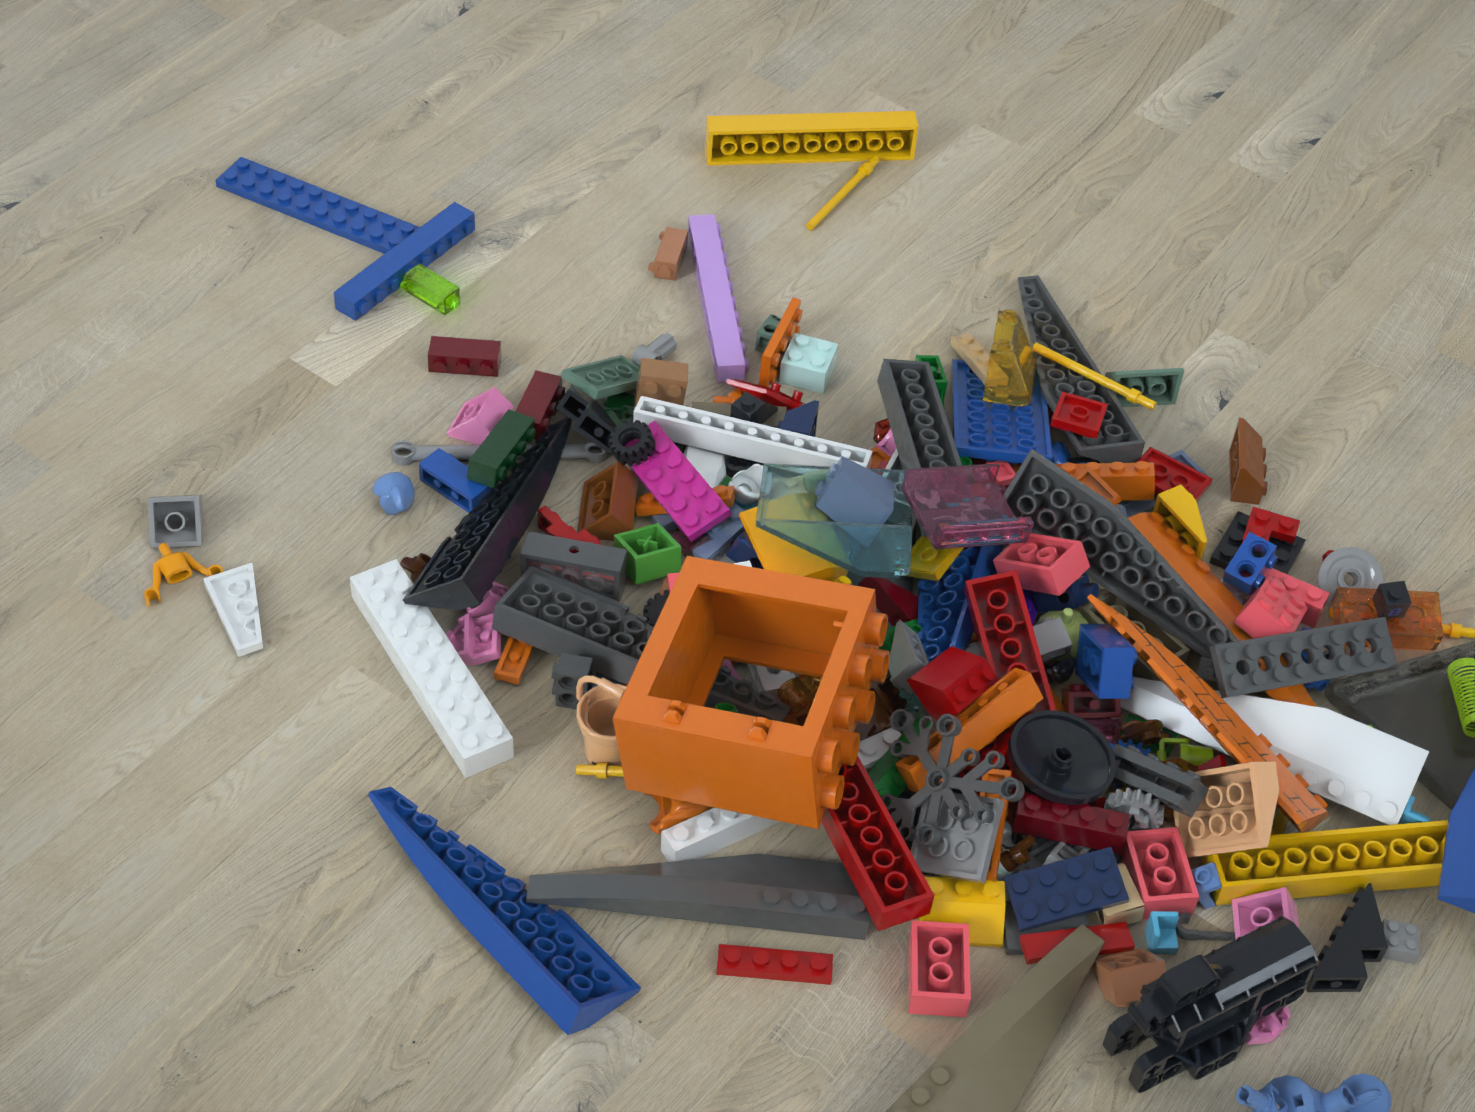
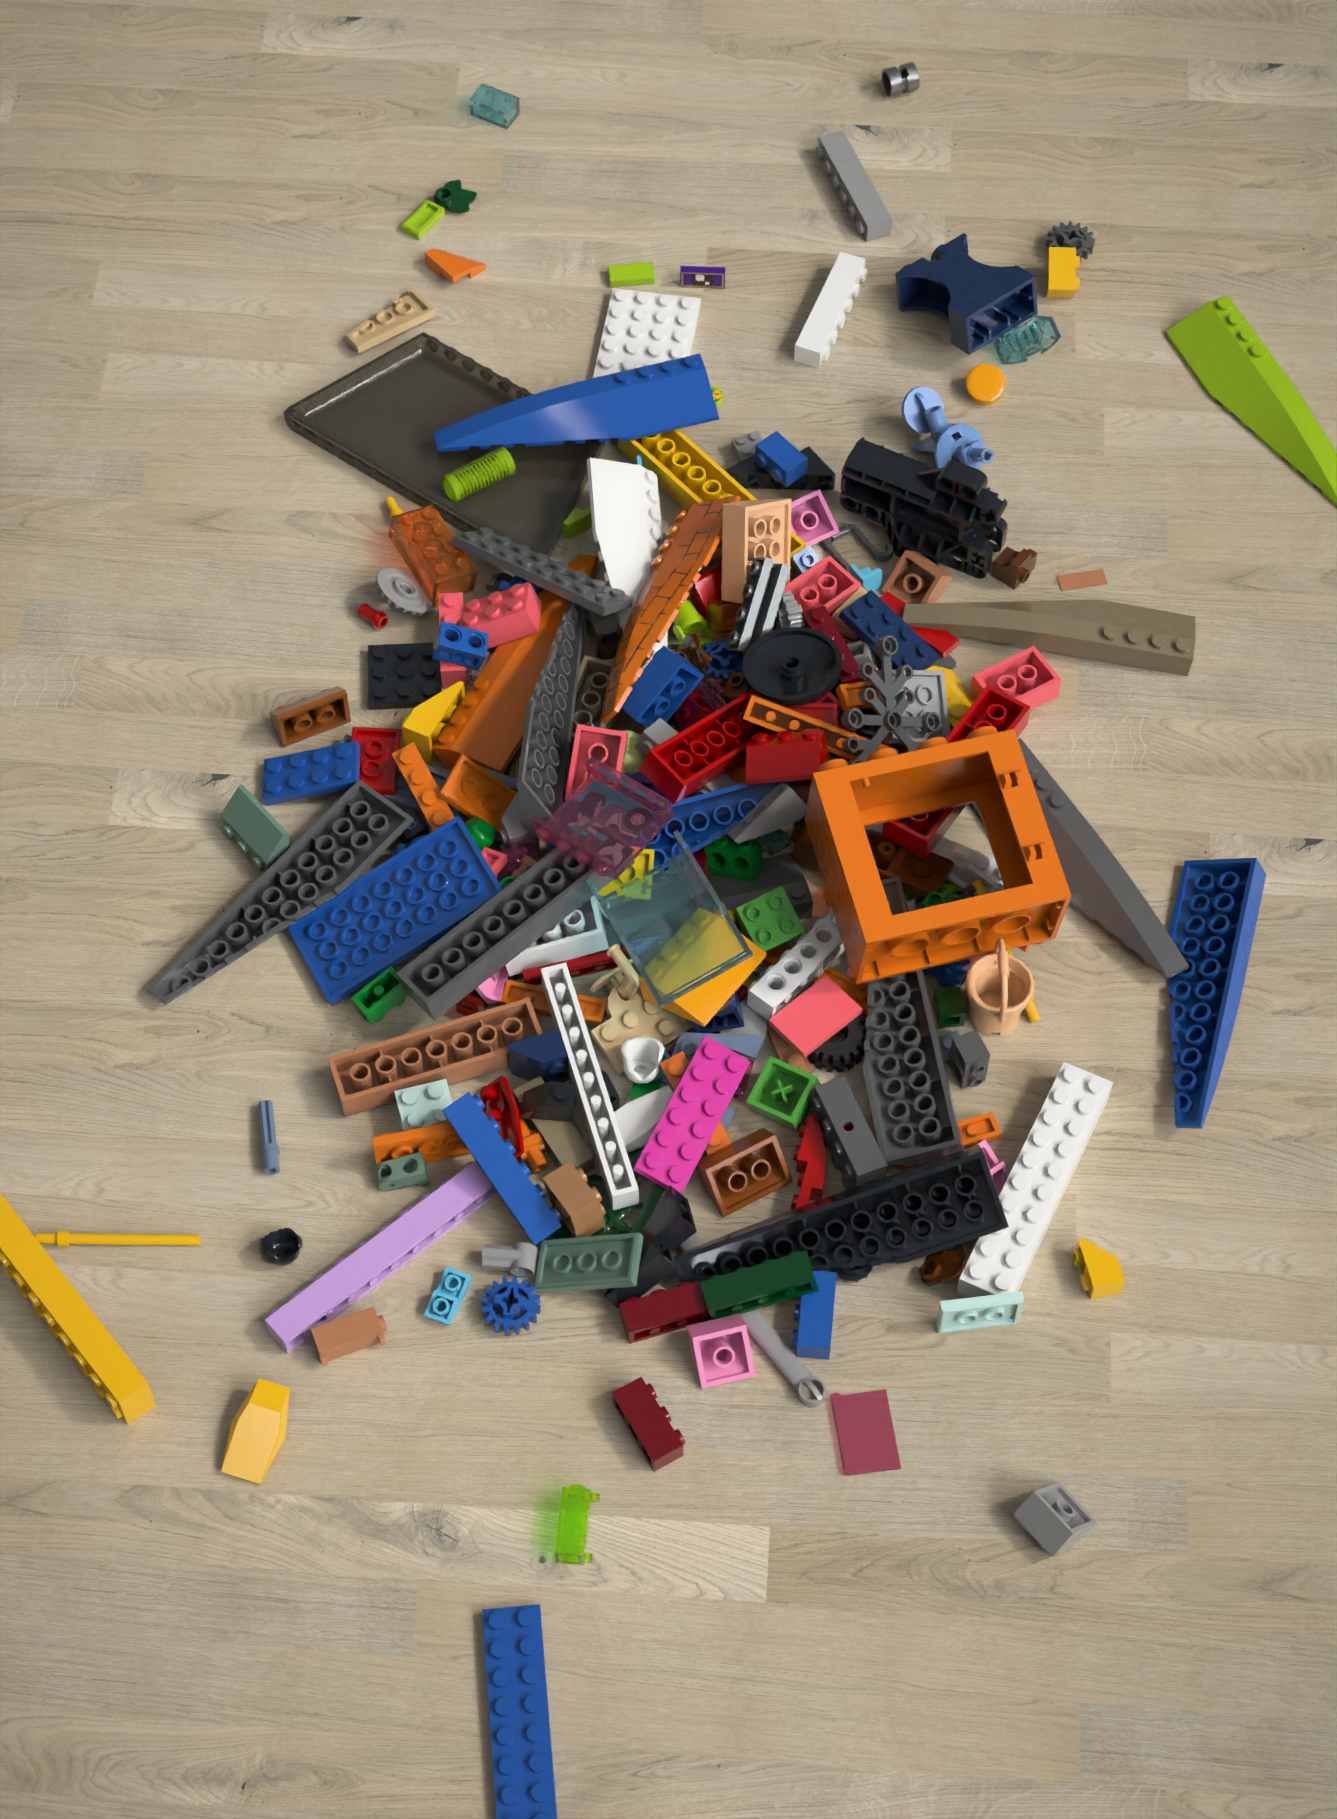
camera: 120 degrees left, 10 degrees up
(175, 570) = (1105, 1475): light orange piece -> none
(237, 606) = (1096, 1395): white wing -> none
(325, 662) = (1099, 1270): none -> yellow slope
(347, 466) = (865, 1432): none -> clear pink piece
(361, 556) = (979, 1312): none -> light aqua tile
(388, 271) = (547, 1584): blue brick -> none
(395, 492) = (875, 1351): medium blue hair -> none
(617, 335) = (500, 1300): none -> blue gear
(629, 432) = (690, 1148): black tyre -> none
(640, 188) = (257, 1432): none -> yellow piece
(655, 315) = (448, 1296): none -> medium azure slope
(732, 350) = (501, 1167): none -> blue brick
(766, 250) = (280, 1247): none -> black hair
(775, 964) = (1090, 794): red plate -> none
(854, 379) = (443, 1051): none -> nougat brick
(855, 494) = (641, 917): sand blue slope -> none
(867, 288) = (269, 1148): none -> sand blue axle
(972, 353) = (319, 974): tan plate -> none
(1010, 363) = (300, 935): clear yellow windscreen -> none
(1079, 415) = (369, 834): red plate -> none
(1096, 1072) = (1014, 566): none -> reddish brown brick
(1132, 395) = (298, 816): yellow bar -> none
(1181, 438) = (311, 773): none -> blue plate
(1270, 524) = (384, 673): red plate -> none
(1354, 927) = (780, 459): none -> blue brick
(1392, 600) = (438, 533): black brick -> none

